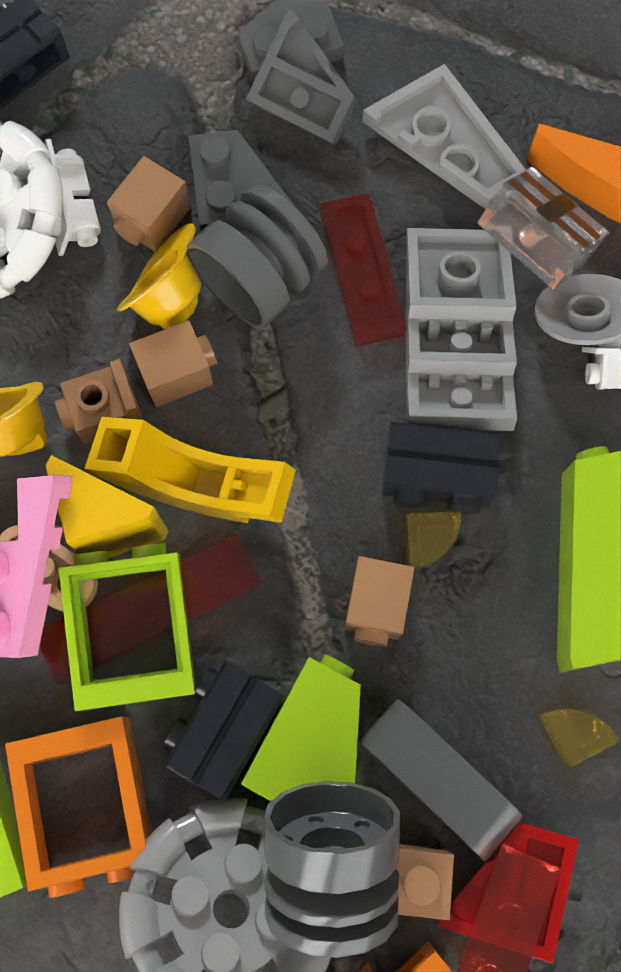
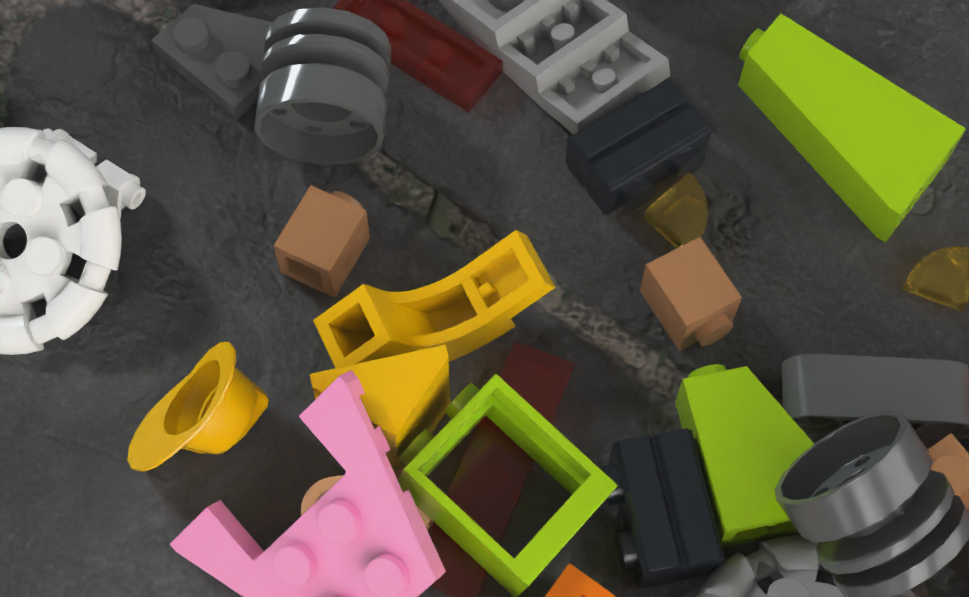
camera: 40 degrees left, 10 degrees down
(116, 402) = (286, 347): medium nougat brick -> none
(148, 204) = (171, 122): medium nougat brick -> none
(168, 284) = (250, 171): yellow piece -> none

